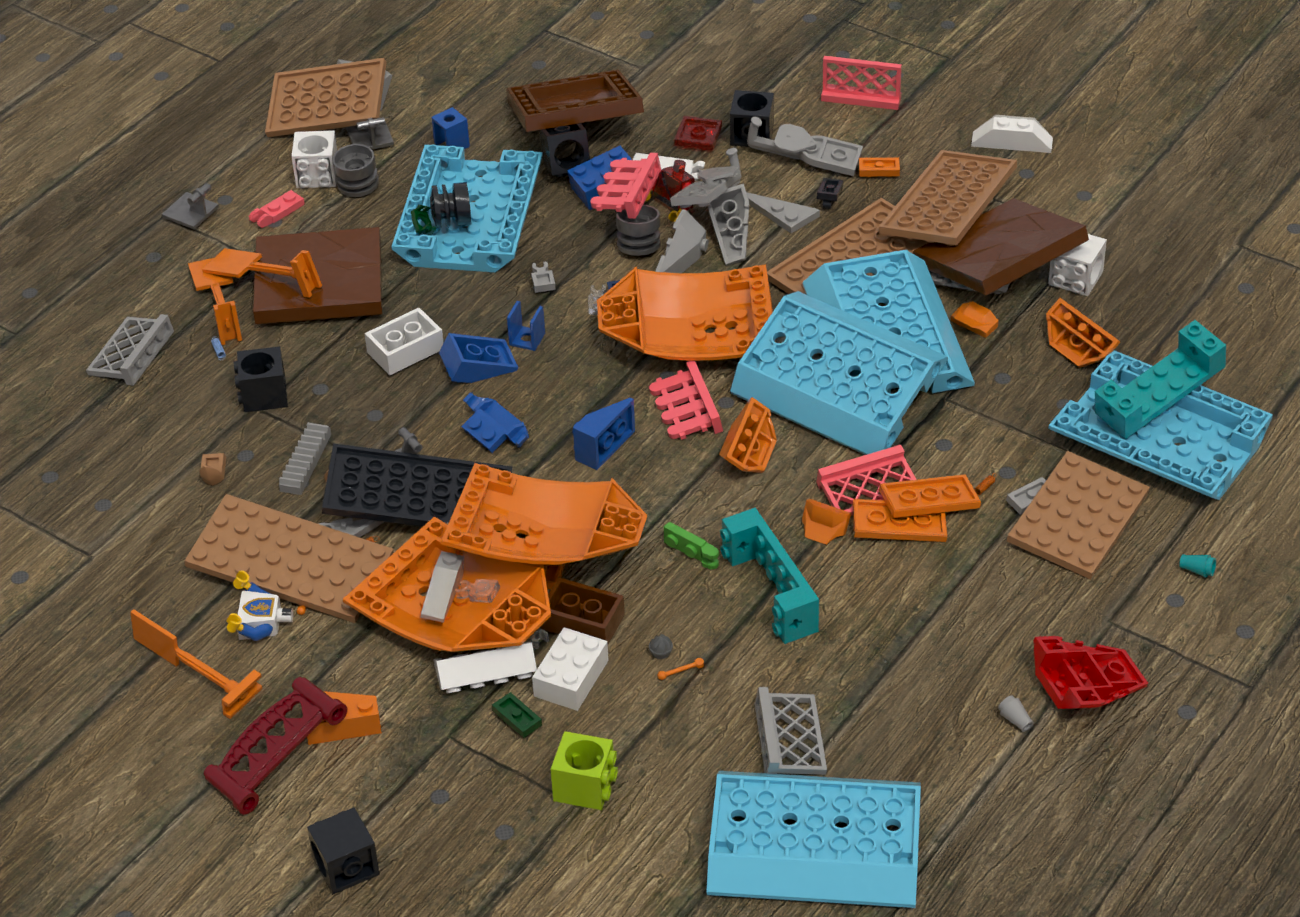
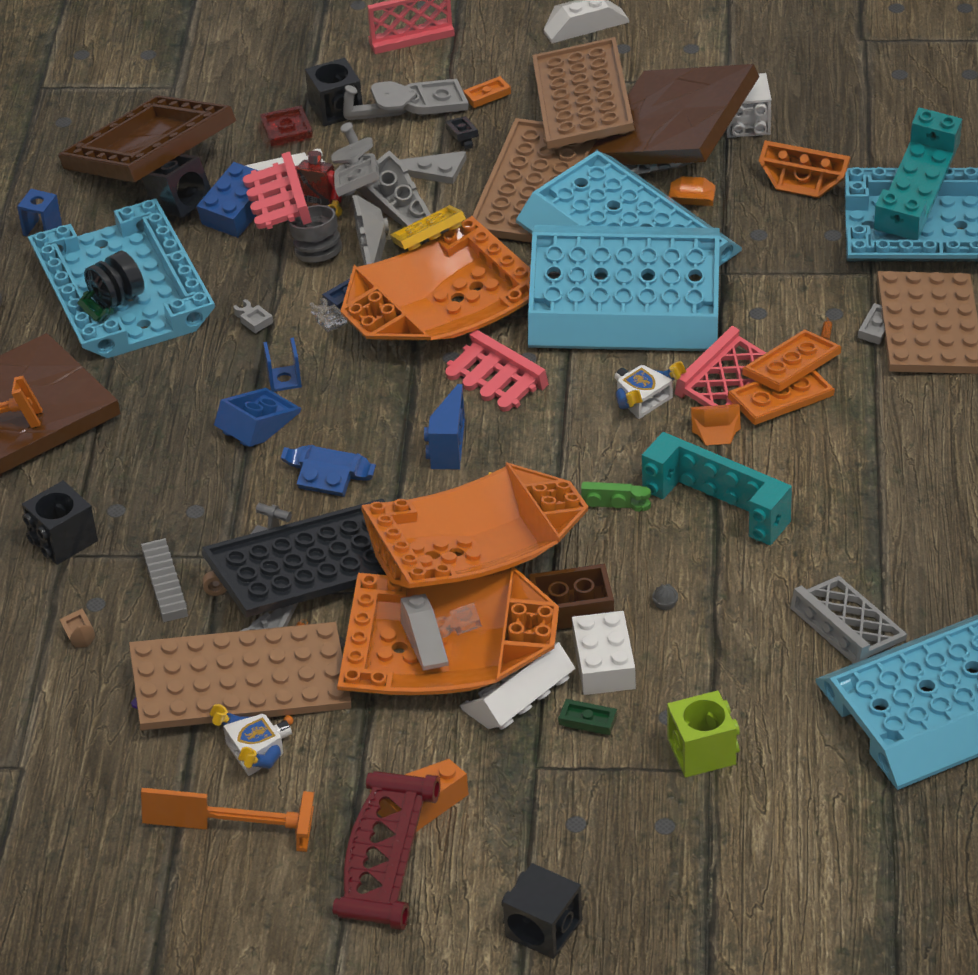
camera: 30 degrees left, 0 degrees up
(404, 341) = (171, 428): white brick -> none
(699, 663) = (709, 596): orange hinge -> none
(725, 260) = (428, 227): none -> yellow plate
(750, 438) = (585, 378): orange wedge -> none
(790, 467) = (646, 388): none -> torso

